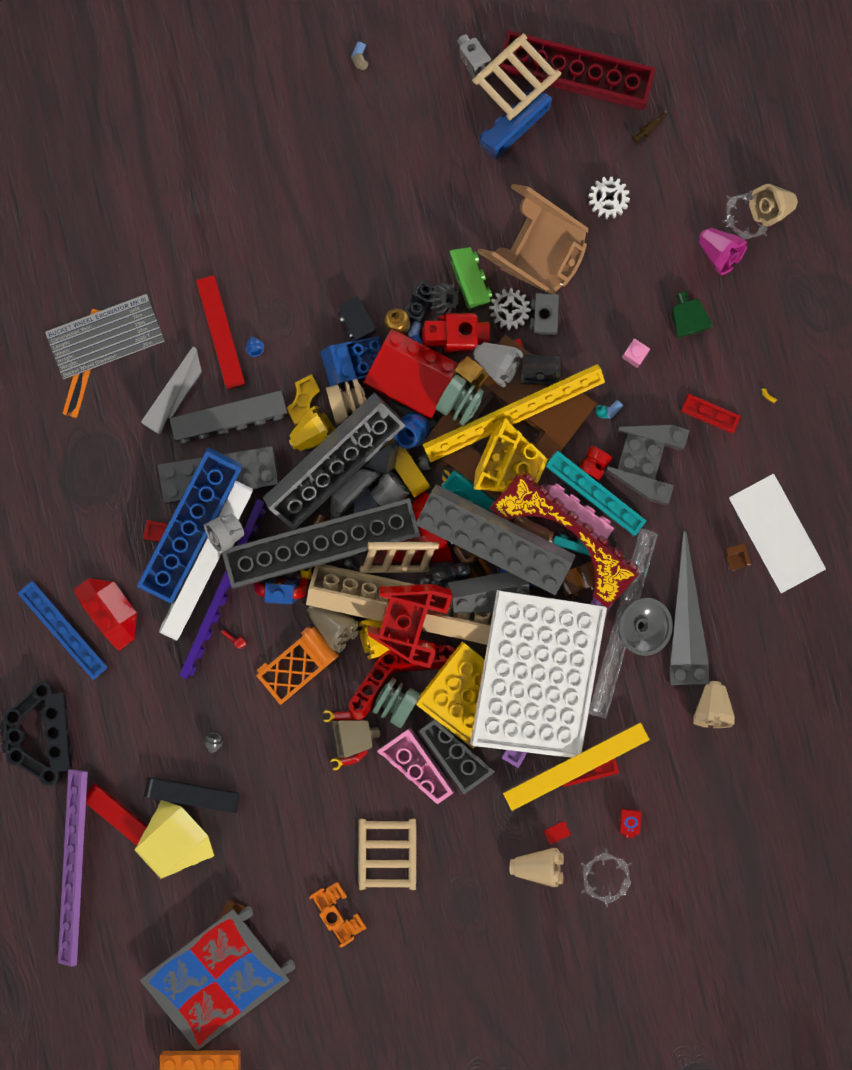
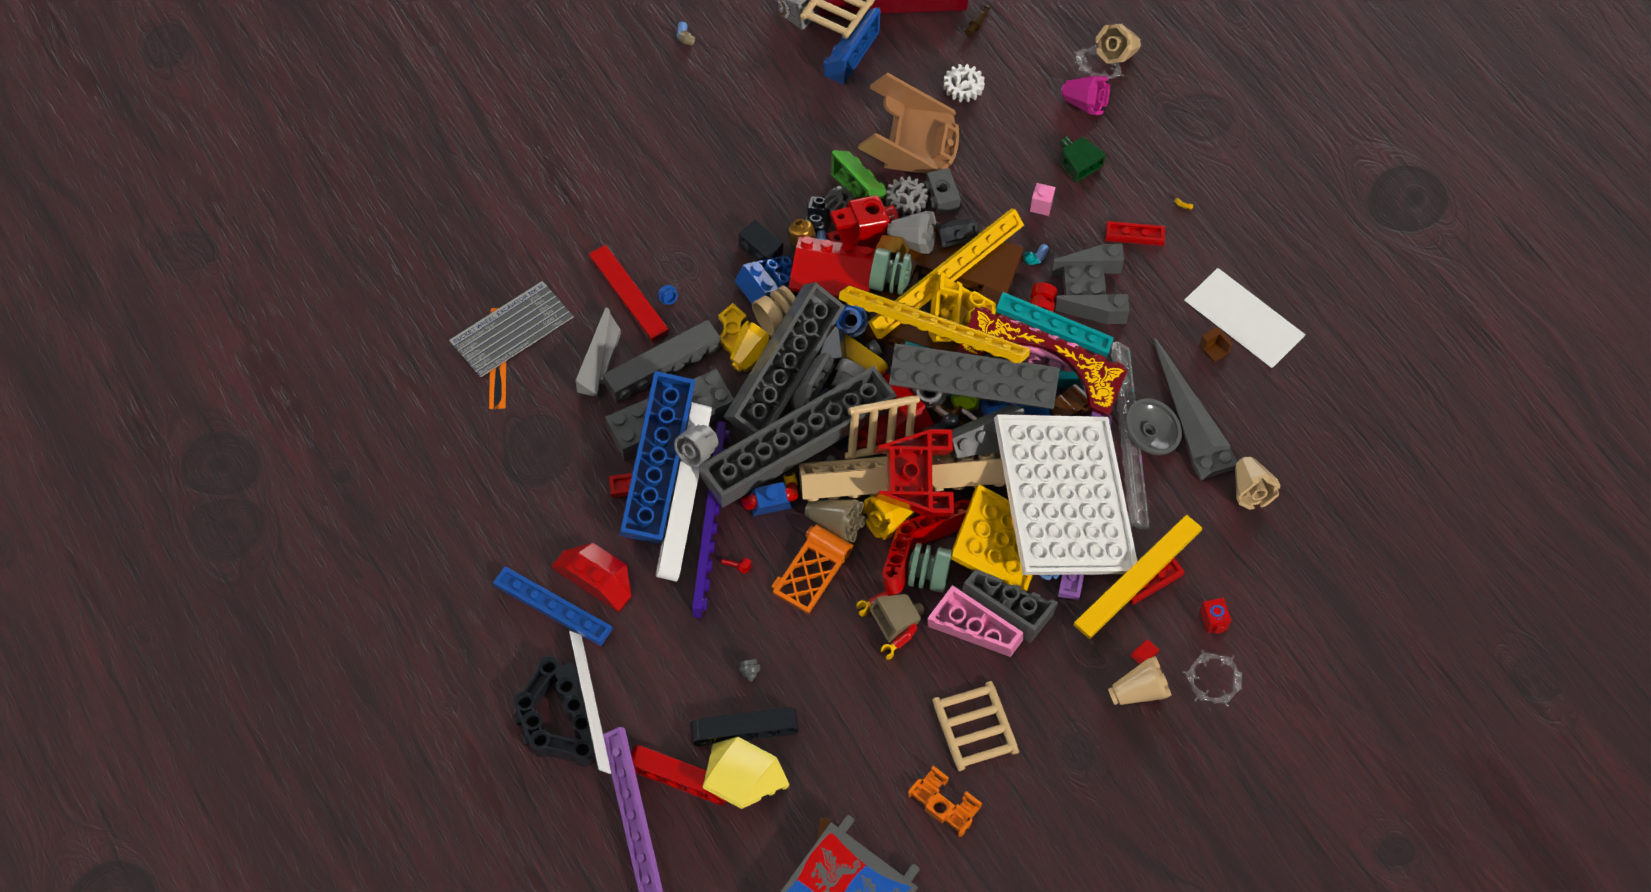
camera: 20 degrees left, 25 degrees down
(66, 736) = (590, 703): none -> white sticker
(476, 477) = (940, 326): none -> yellow plate

